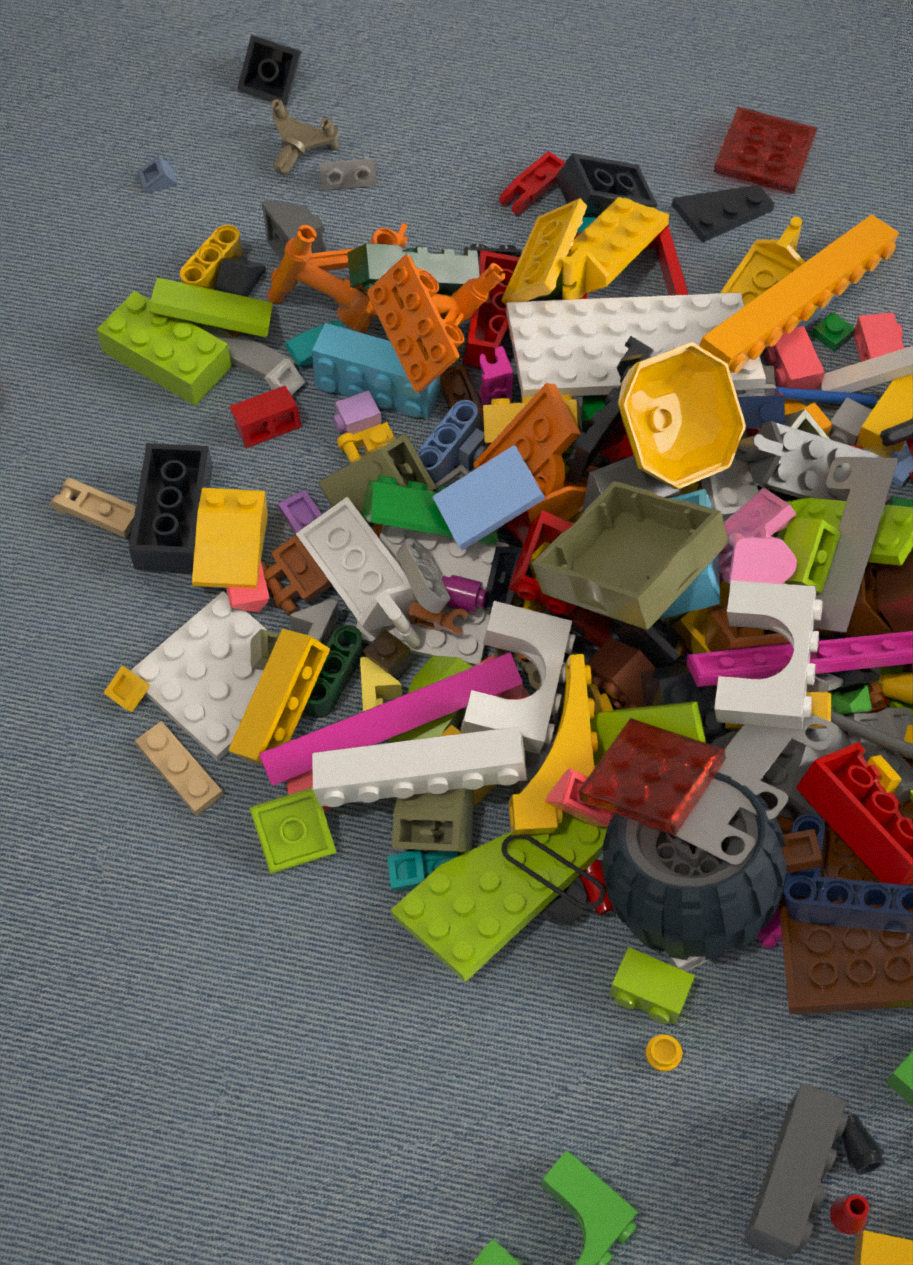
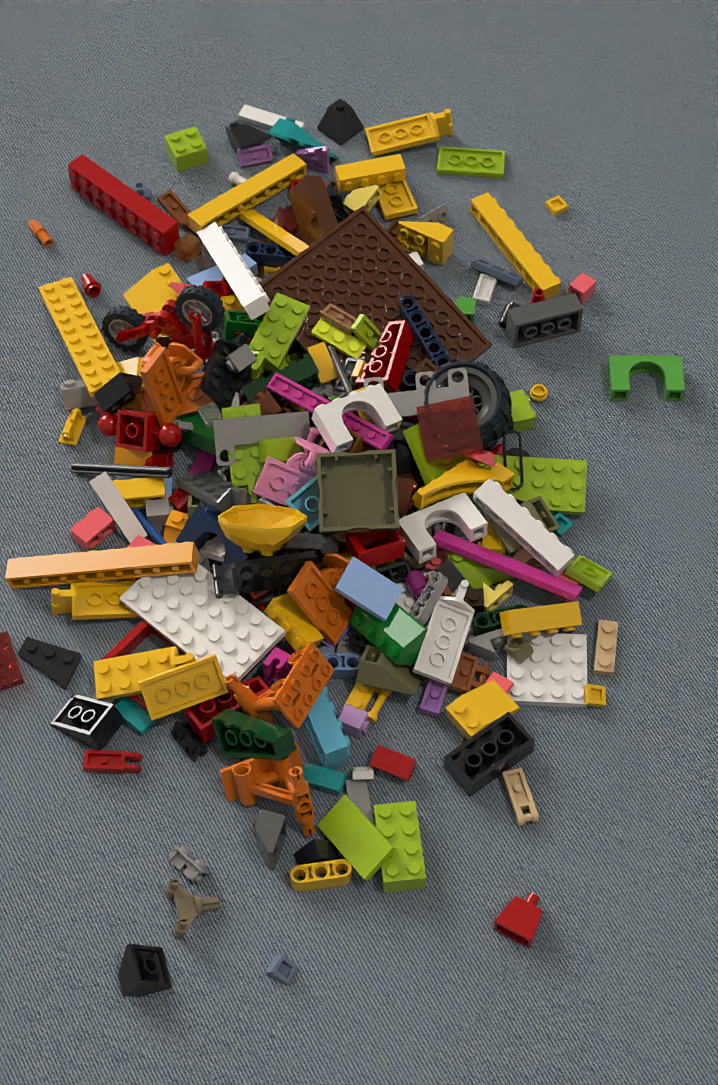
camera: 130 degrees left, 5 degrees down
(437, 658) = (453, 574): none -> dark grey slope

